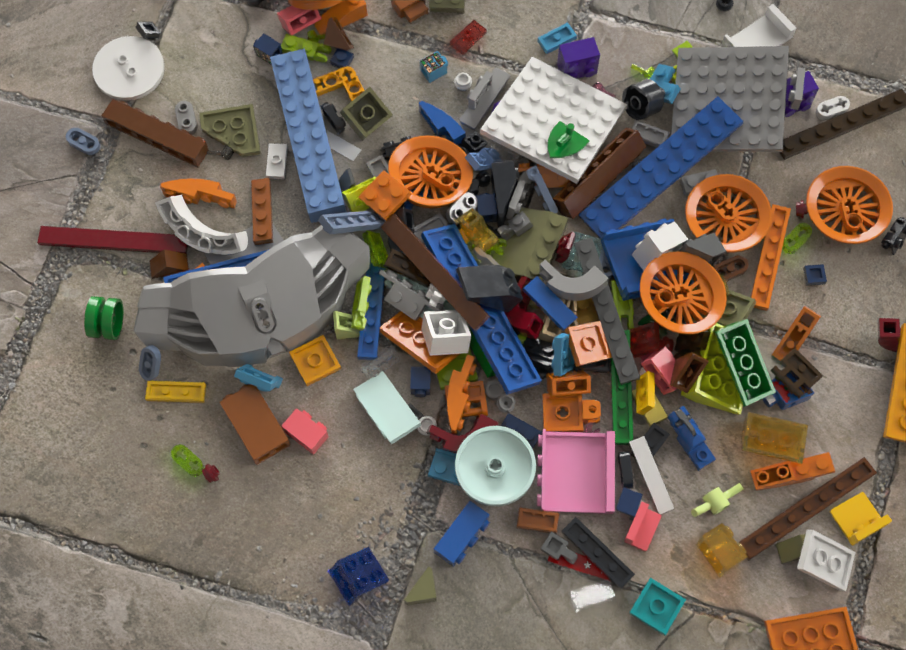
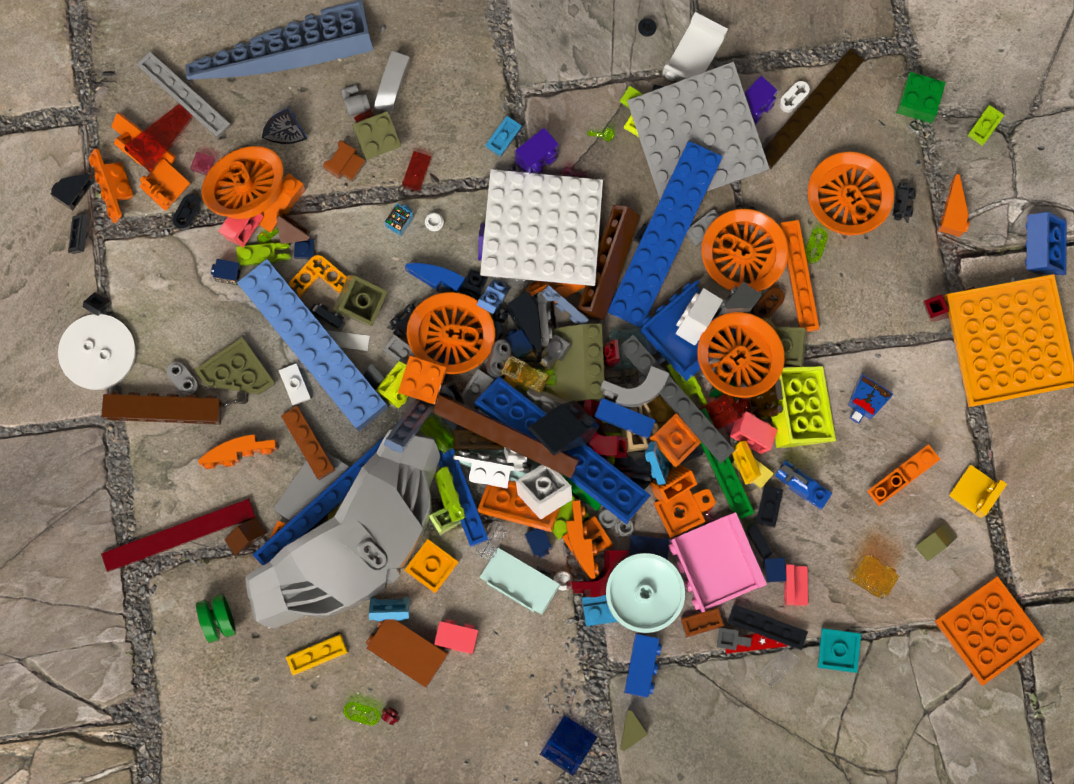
camera: 30 degrees left, 10 degrees up
(84, 142) = (95, 449): sand blue plate -> none
(149, 362) = (281, 641): sand blue plate -> none
(194, 233) = (258, 494): white brick -> none
(483, 96) = (462, 230): light grey bracket -> none
(565, 141) = (565, 249): green shield -> none
(643, 99) = (617, 169): black brick -> none
(651, 135) = (637, 200): light grey plate -> none
(651, 475) = (783, 534): white sticker -> none
(662, 76) = (622, 146): dark azure plate -> none
(687, 371) = (775, 427): reddish brown slope -> none
(716, 500) = (849, 532): yellowish green piece -> none
(745, 362) = (822, 394): green slope -> none
(774, 437) = (875, 453): clear yellow slope -> none
(796, 94) = (760, 109): light grey plate -> none
(797, 333) = (854, 342): orange slope -> none
(801, 209) = (808, 215): dark red plate -> none
(801, 369) = (874, 378): dark brown plate -> none
(807, 508) = (928, 502): reddish brown tile -> none
(815, 275) = (846, 276): dark blue plate -> none
(826, 560) = (965, 544): white plate -> none

